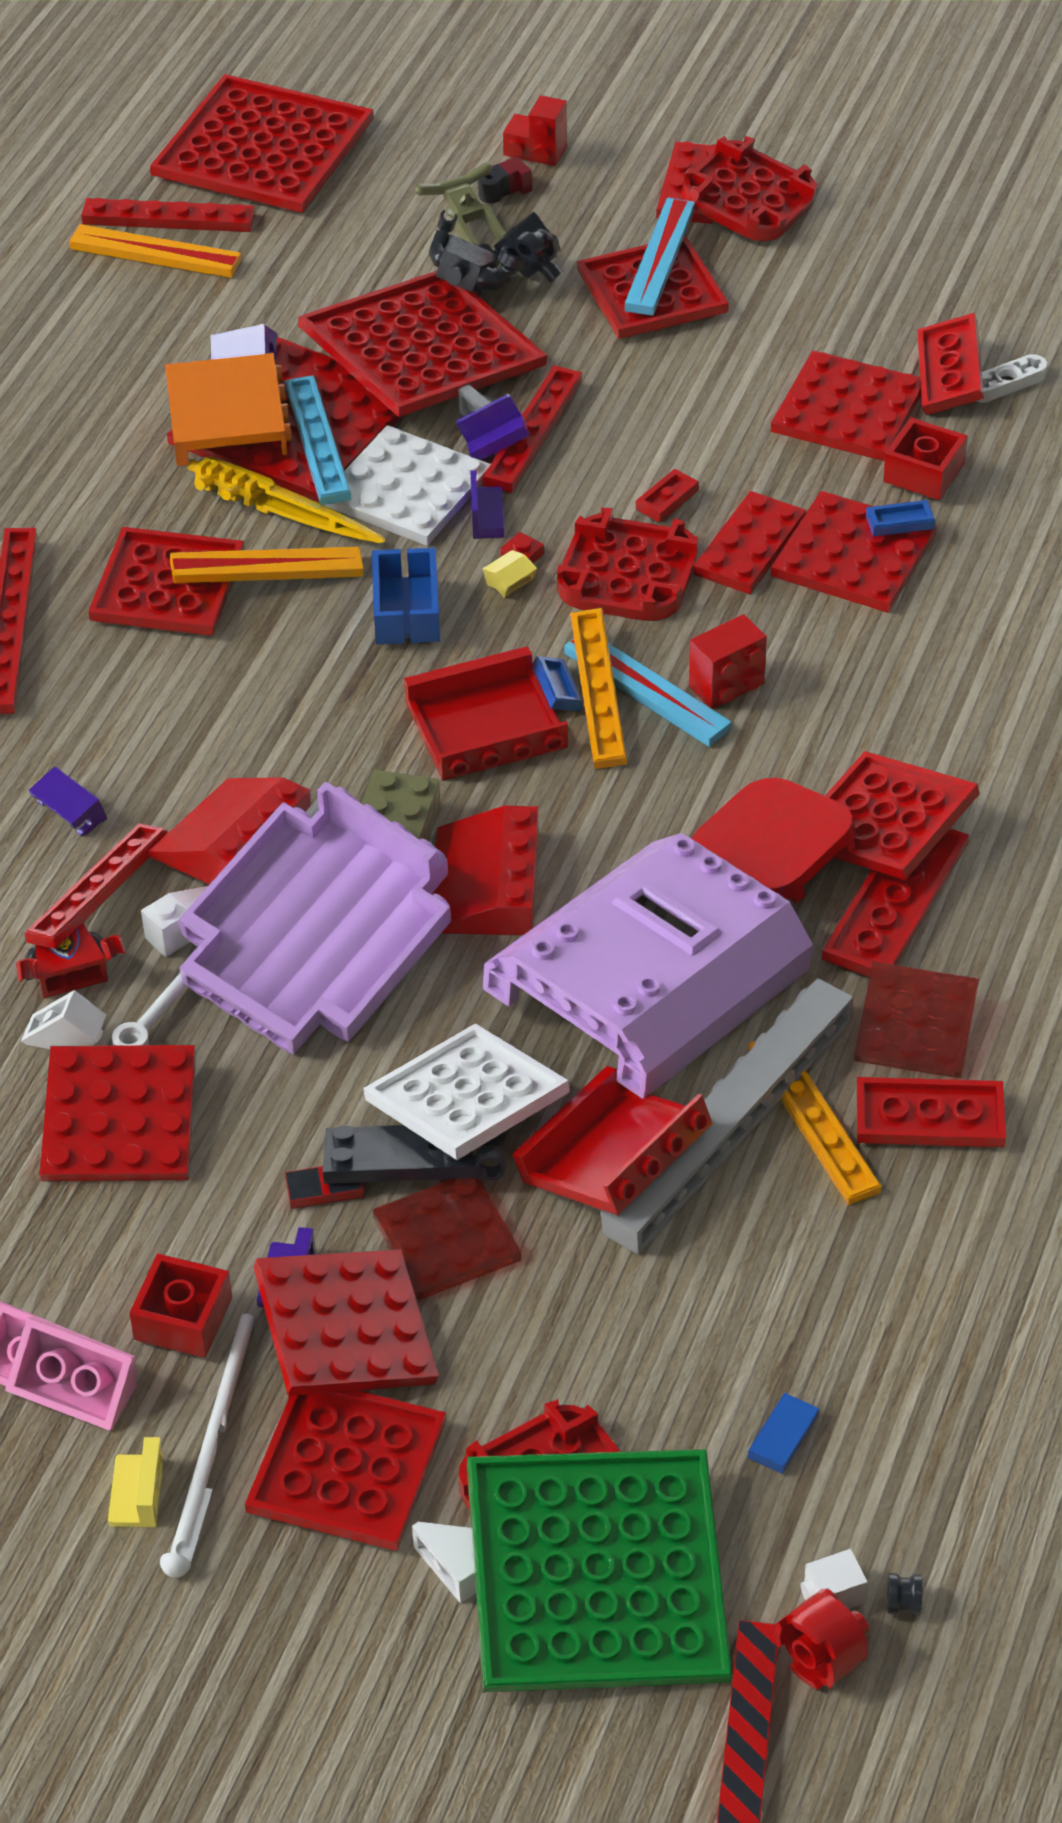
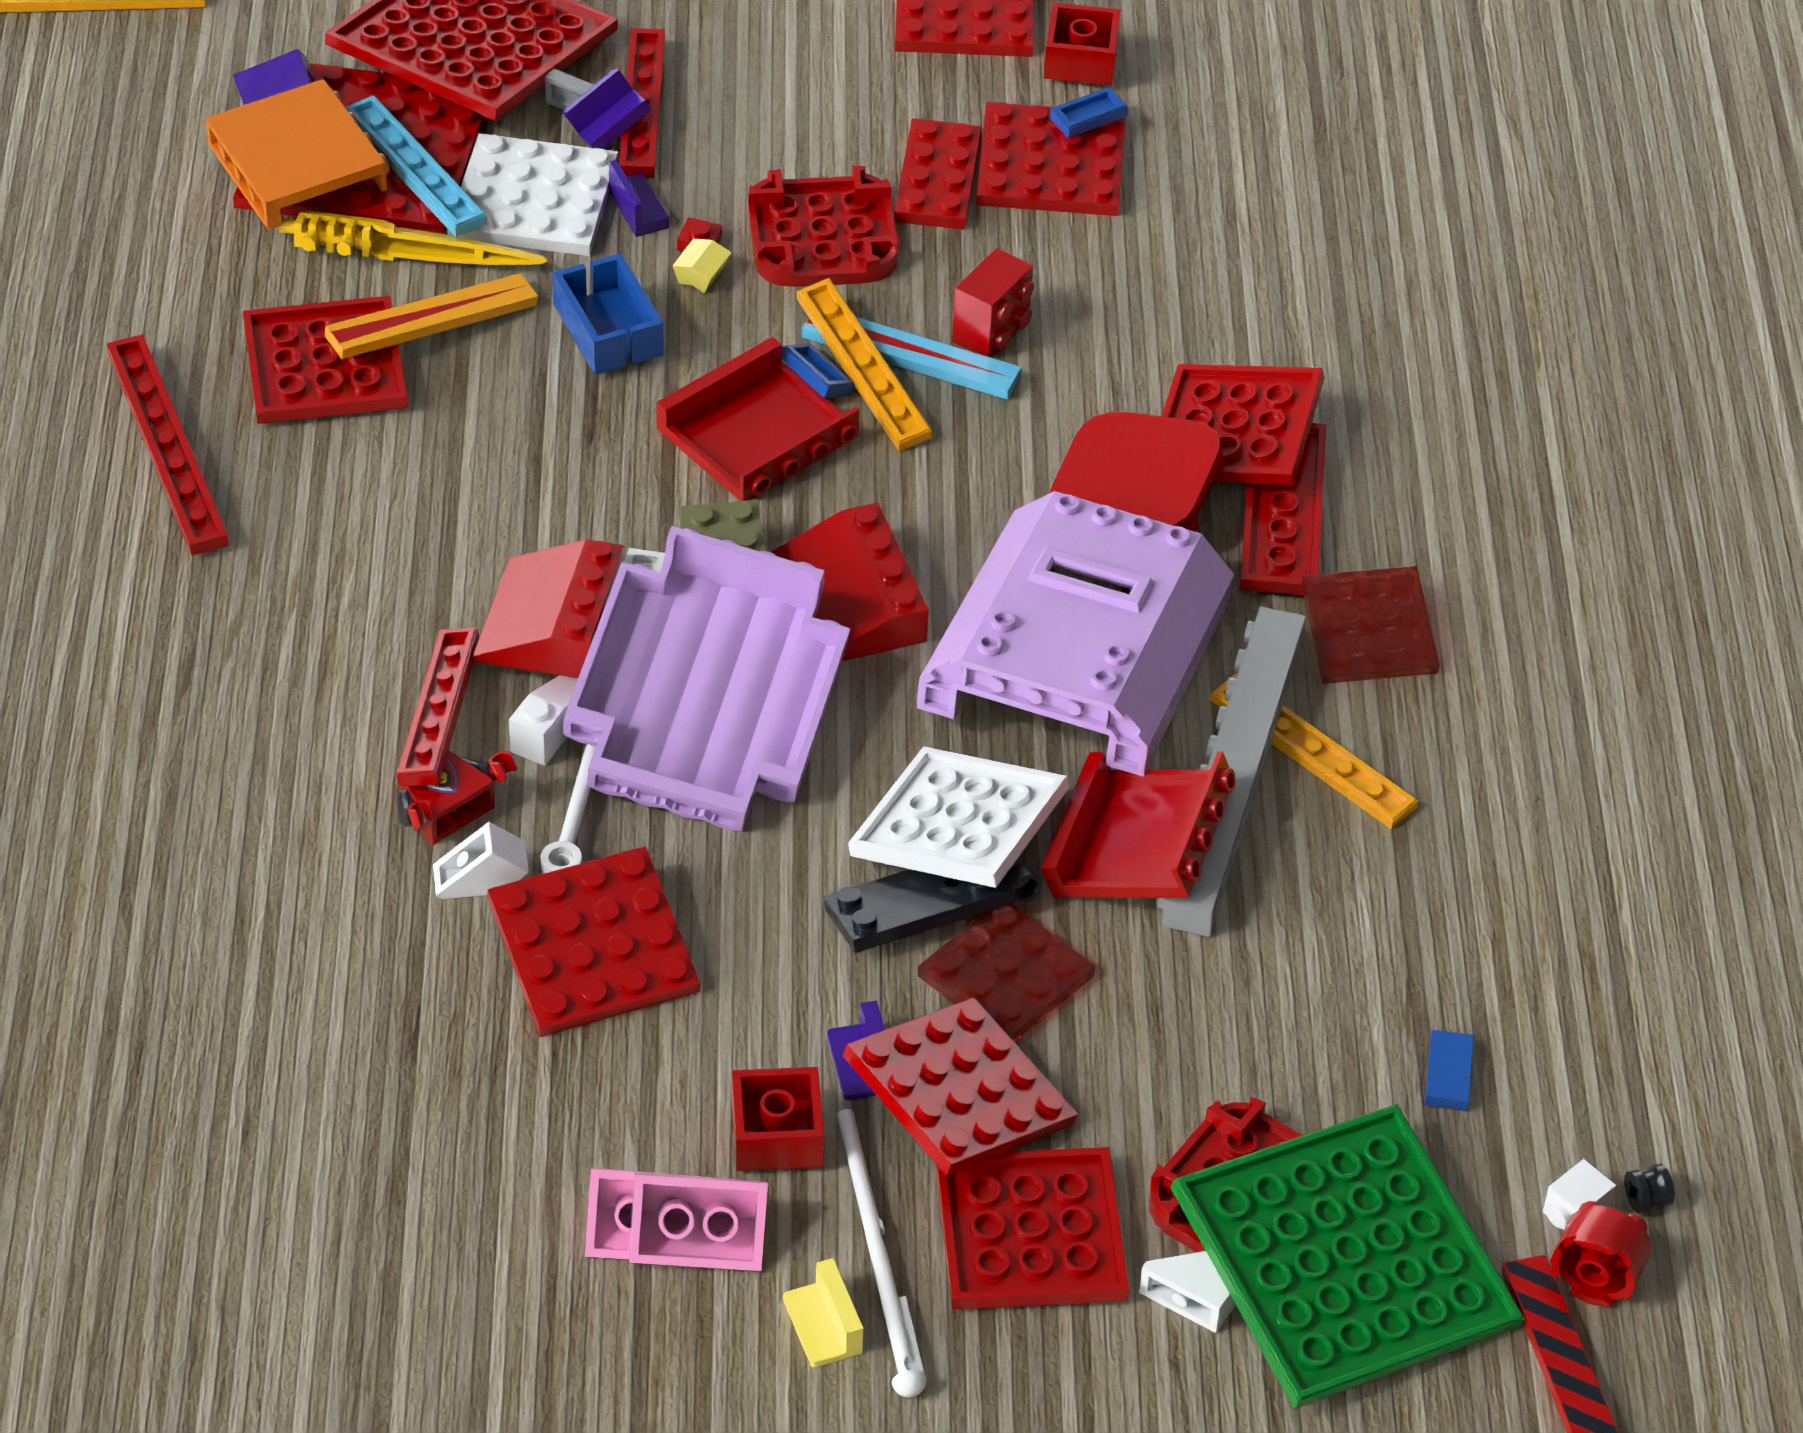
camera: 25 degrees left, 0 degrees up
(68, 800) = (350, 623): dark purple hinge -> none
(308, 1188) = (838, 963): tile -> none
(667, 495) = (826, 143): red plate -> none
(930, 1112) = (1429, 713): red plate -> none

